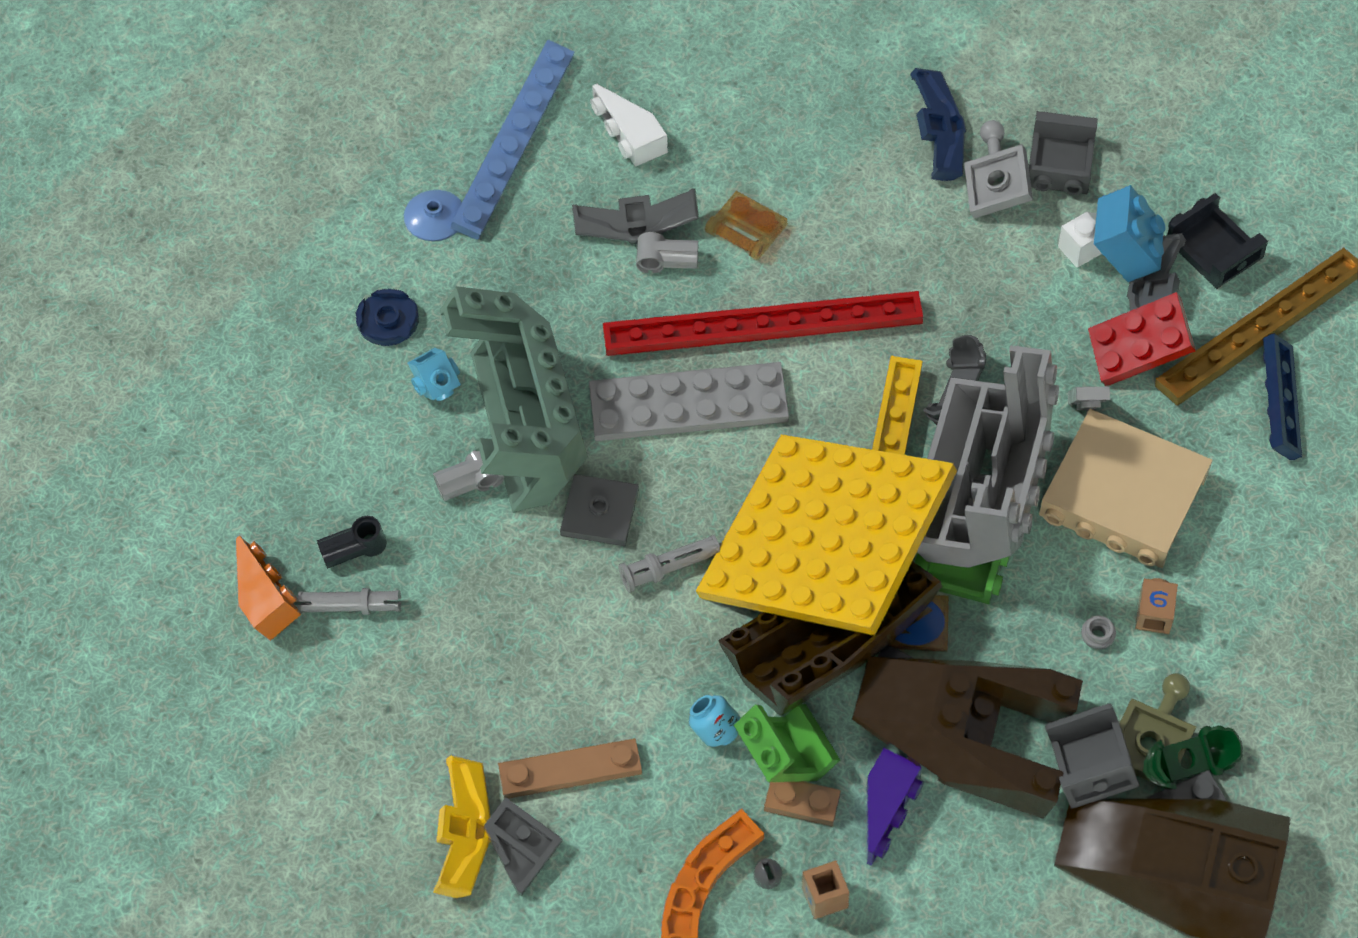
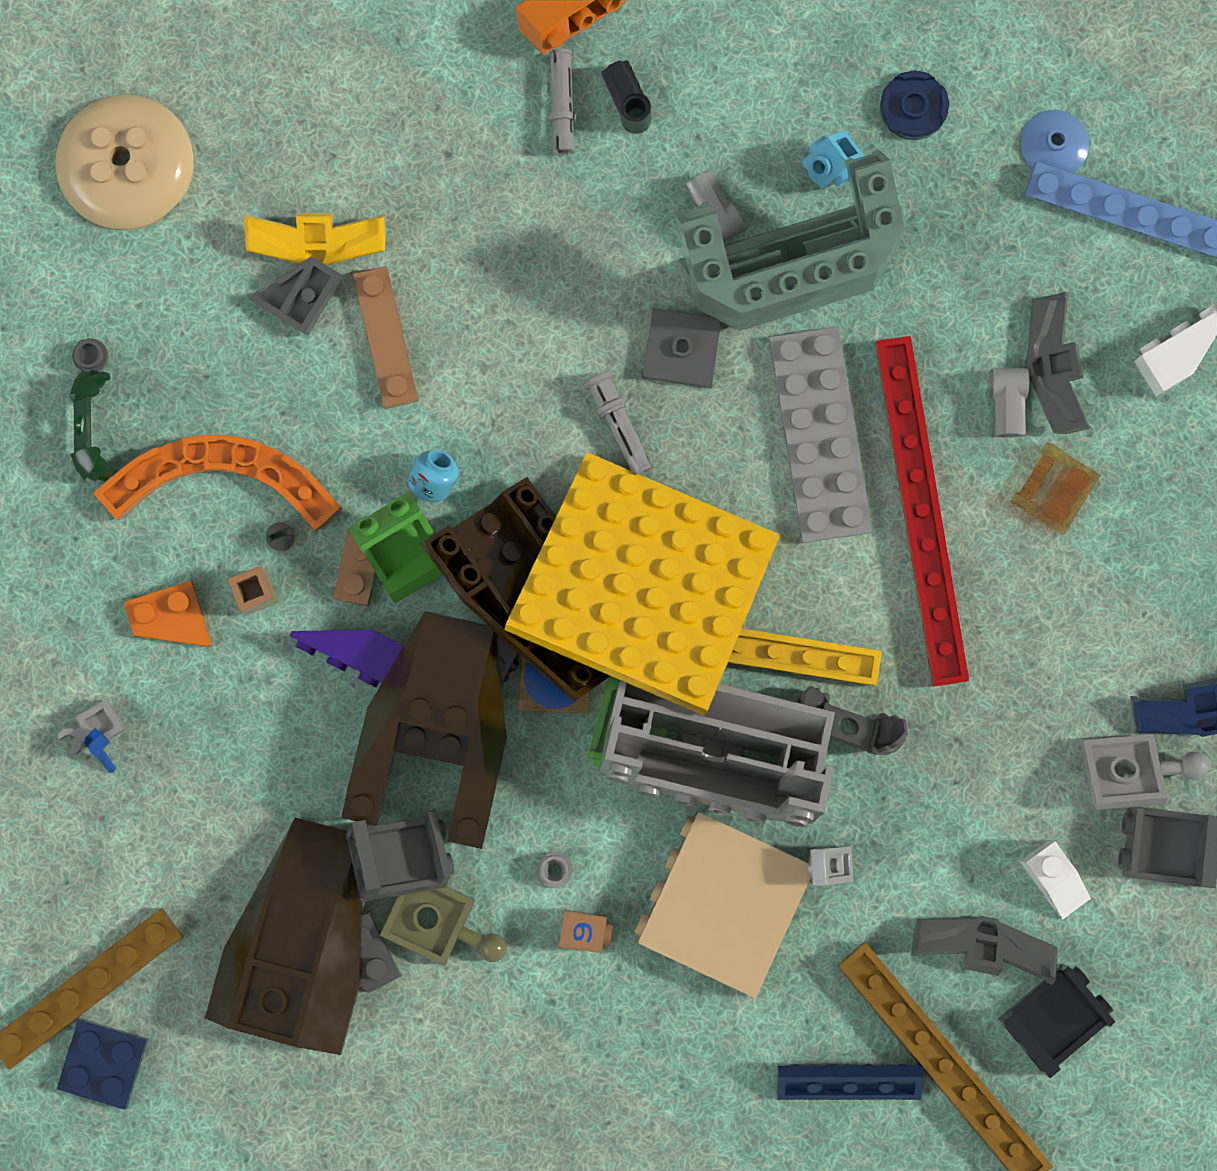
camera: 85 degrees right, 25 degrees up
(1129, 233) = (1046, 917): dark azure brick -> none
(1141, 339) = (910, 927): red plate -> none
(1212, 750) = (421, 979): dark green piece -> none

